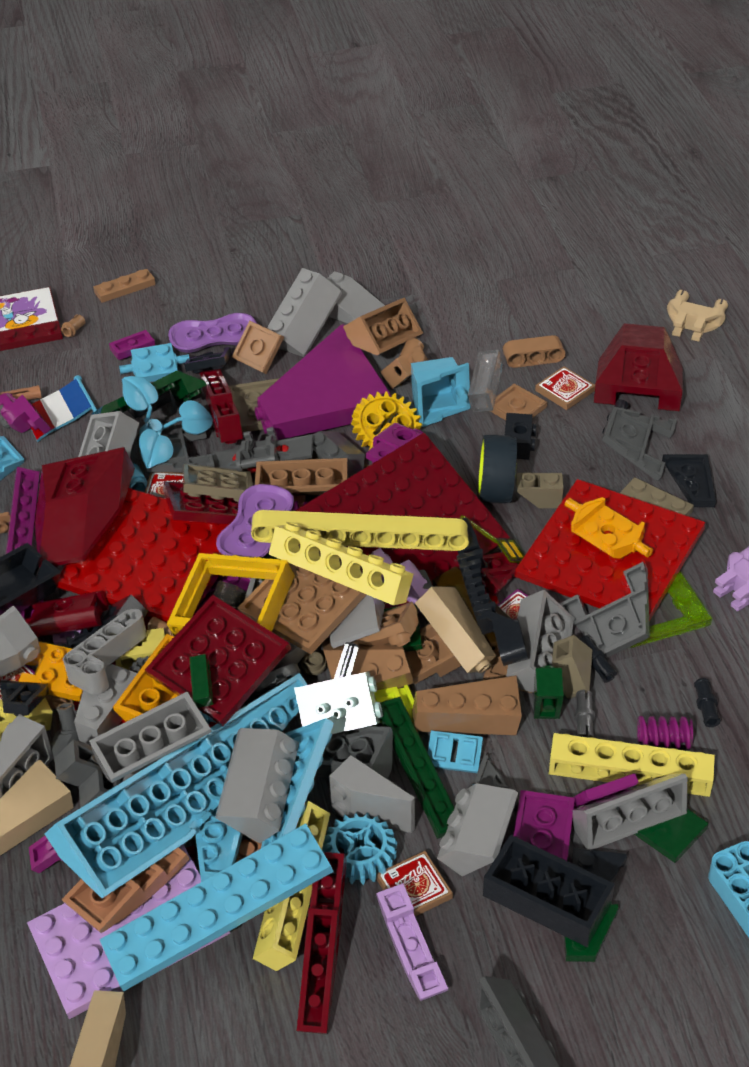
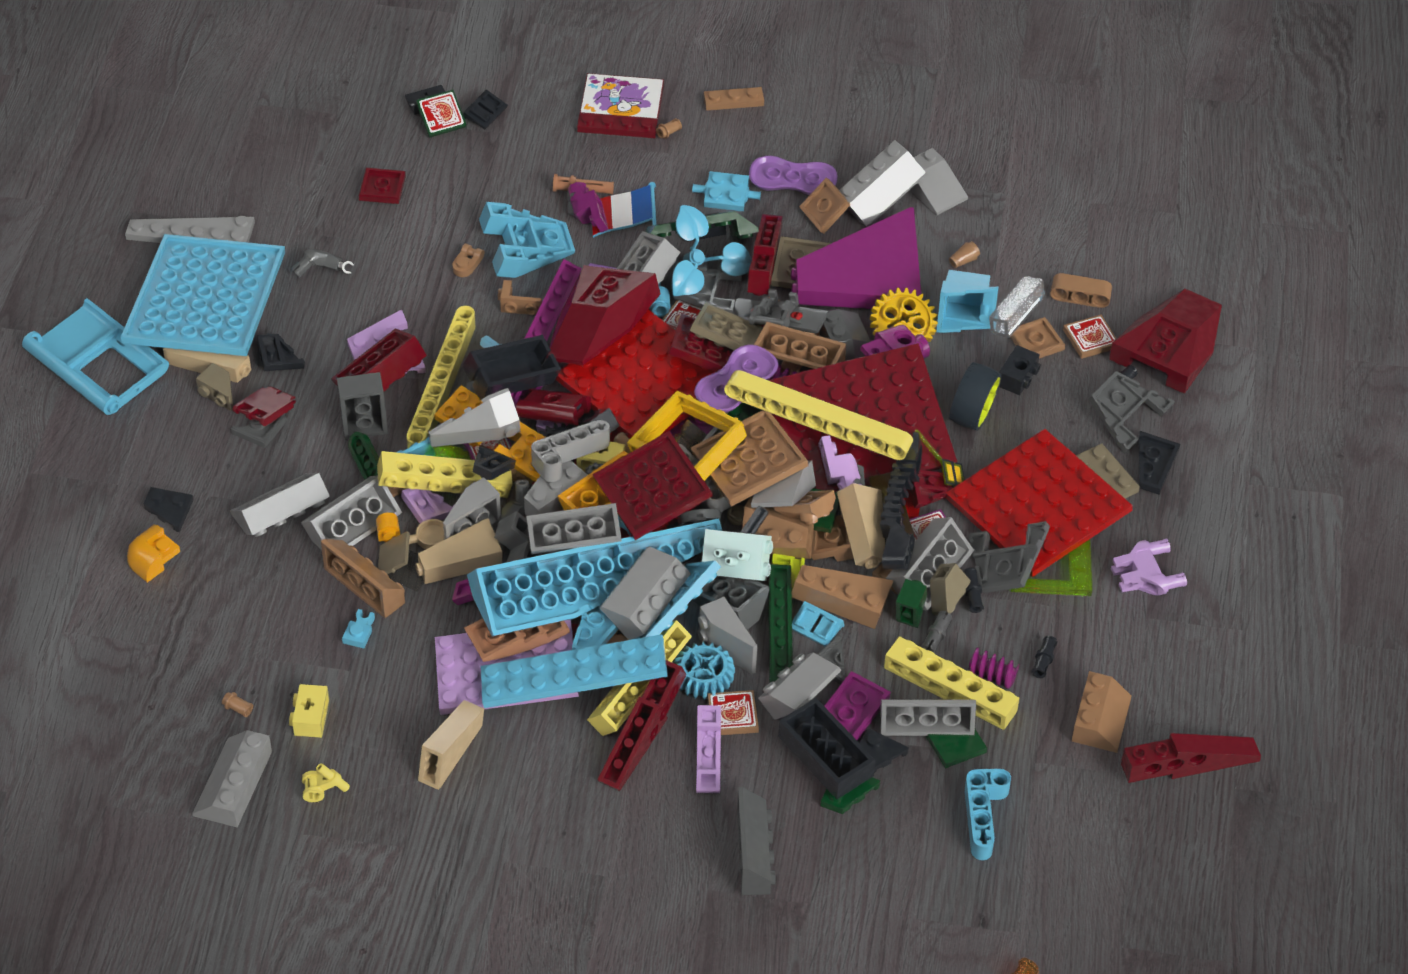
camera: 20 degrees right, 5 degrees up
(122, 347) = (720, 163): magenta plate -> none
(201, 681) = (630, 498): dark green piece -> none
(216, 361) = (775, 204): black wing -> none
(383, 328) = (949, 224): medium nougat slope -> none
(396, 579) = (782, 439): light yellow brick -> none
(404, 363) = (956, 263): medium nougat torso -> none
(541, 489) = (1008, 426): dark tan slope -> none
(595, 517) = (1038, 469): light orange plate -> none
(604, 790) = (904, 692): magenta tile -> none
(695, 316) = (1257, 303): tan connector -> none

